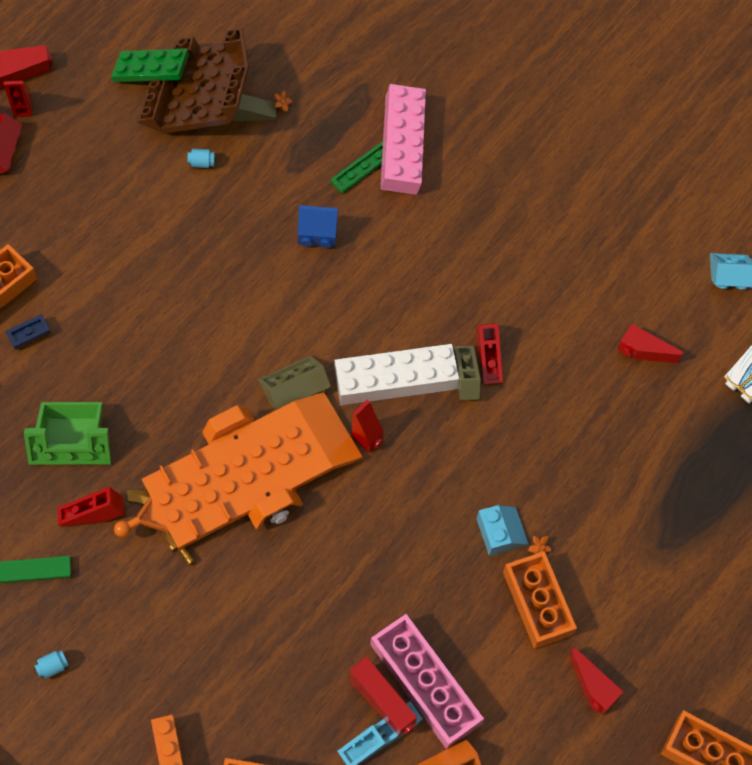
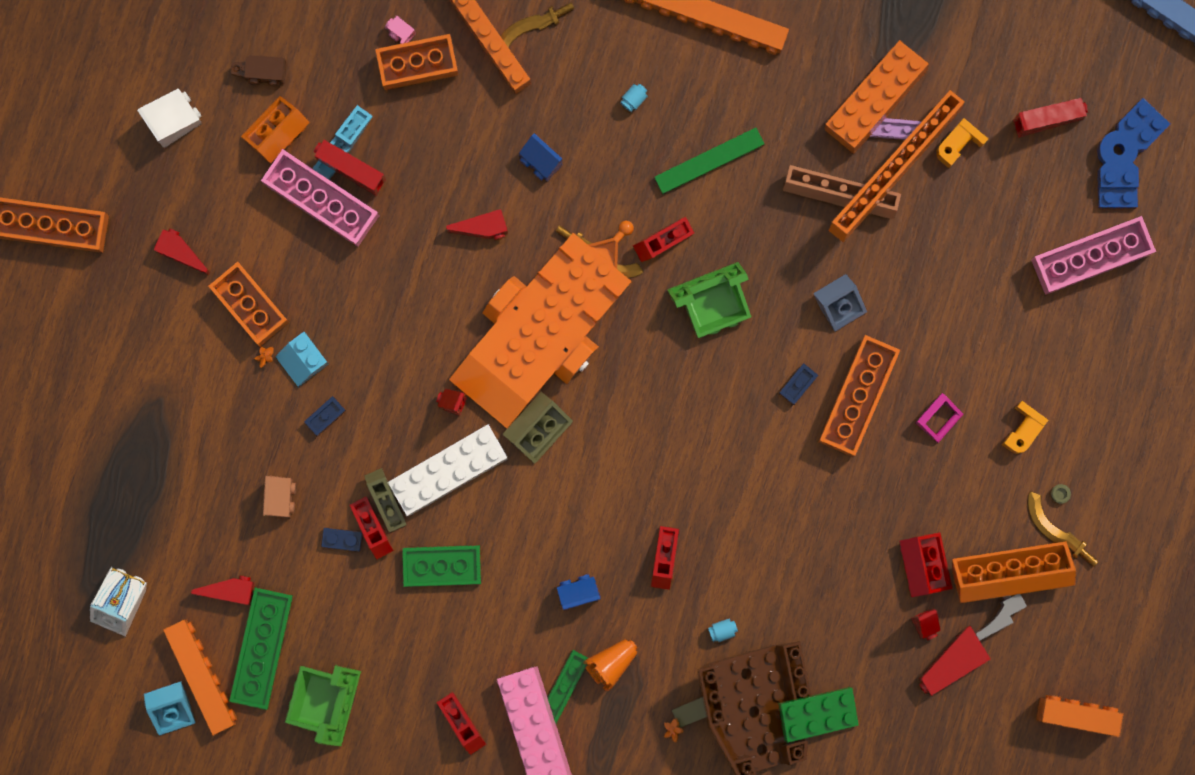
camera: 160 degrees right, 20 degrees up
(178, 635) = (540, 158): none -> blue slope
(225, 232) = (665, 558): none -> red slope
(264, 590) = (484, 226): none -> red slope
(311, 165) = (611, 663): none -> orange cone
(434, 298) = (441, 566): none -> green plate
(467, 167) = (461, 723): none -> red slope
(498, 468) = (325, 416): none -> dark blue plate
(521, 355) = (342, 539): none -> dark blue plate
(569, 407) = (279, 497): none -> nougat slope
(588, 223) = (323, 702): none -> bright green windscreen
(629, 289) = (261, 648): none -> green plate
(695, 285) = (199, 676): none -> orange brick

